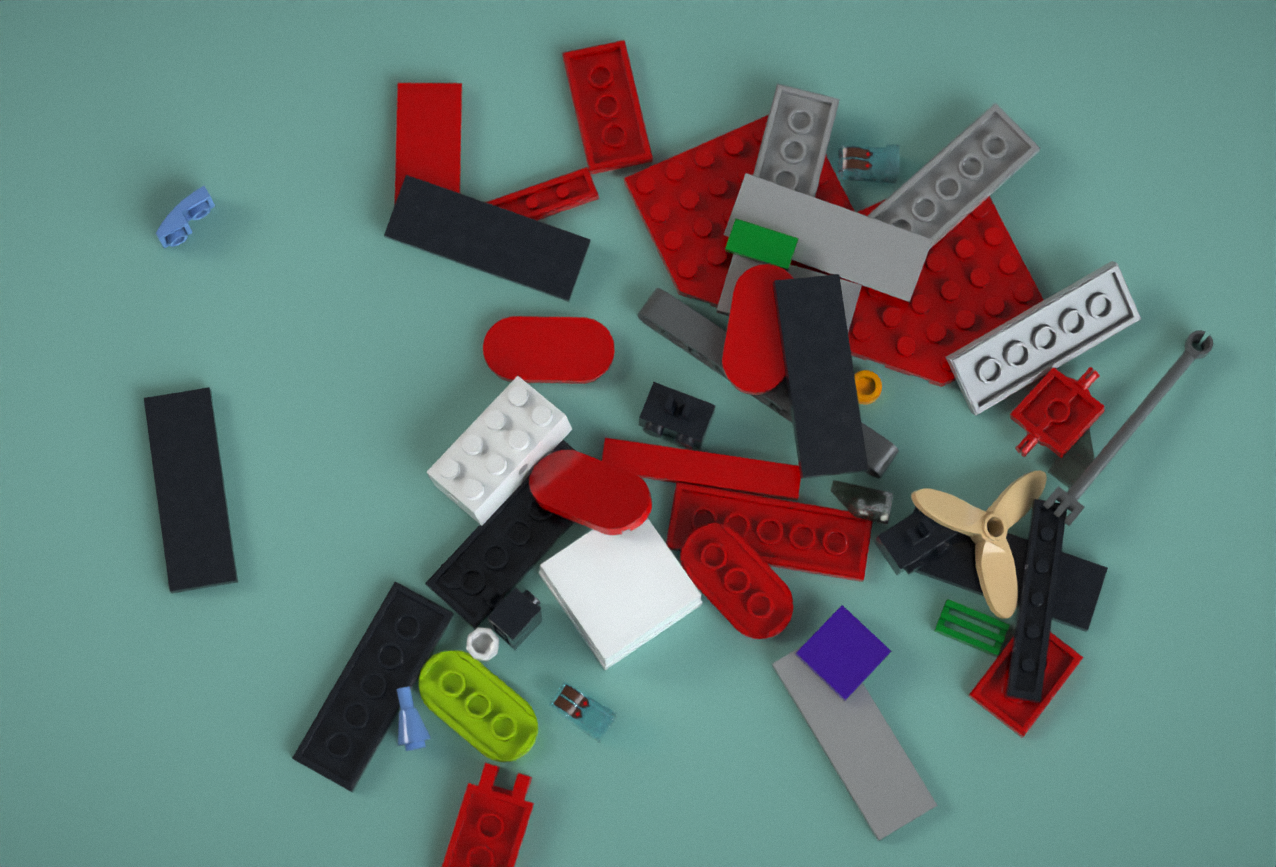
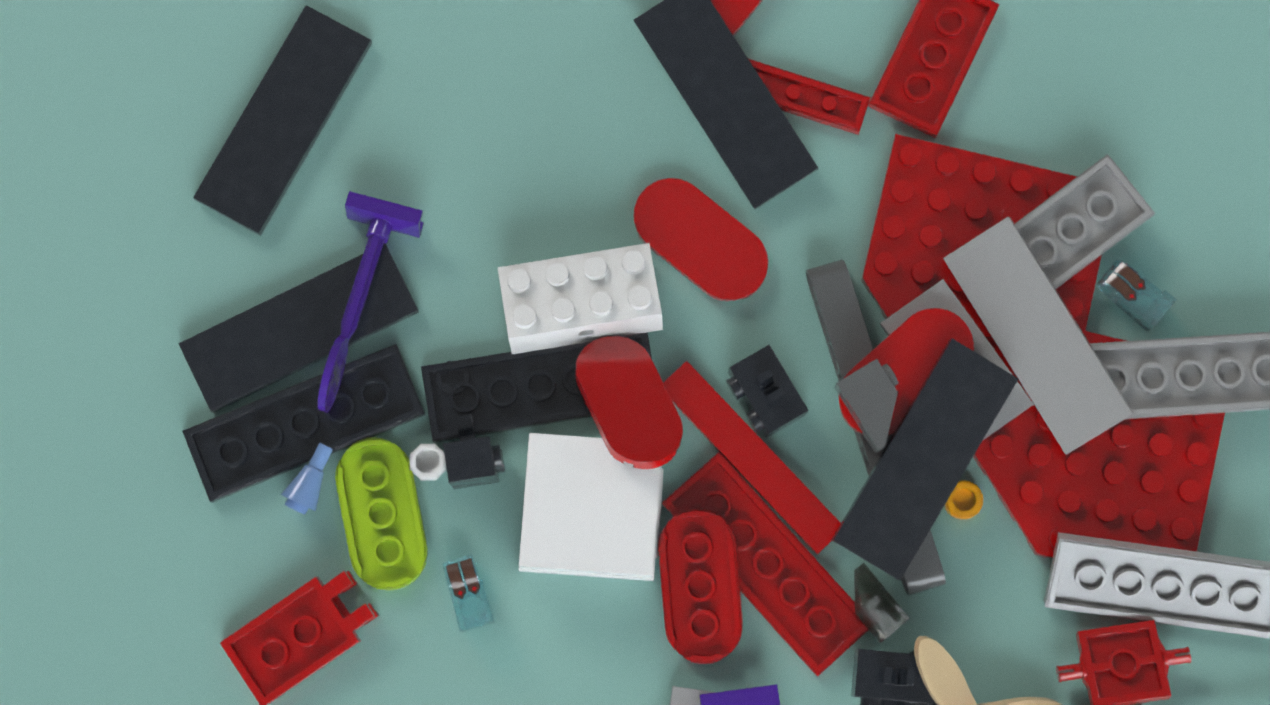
camera: 40 degrees right, 5 degrees up
(317, 624) = (292, 331): none -> black tile
(318, 503) = (382, 219): none -> dark purple piece
(754, 364) = (870, 400): none -> dark grey slope
(761, 244) = (969, 294): green tile -> none

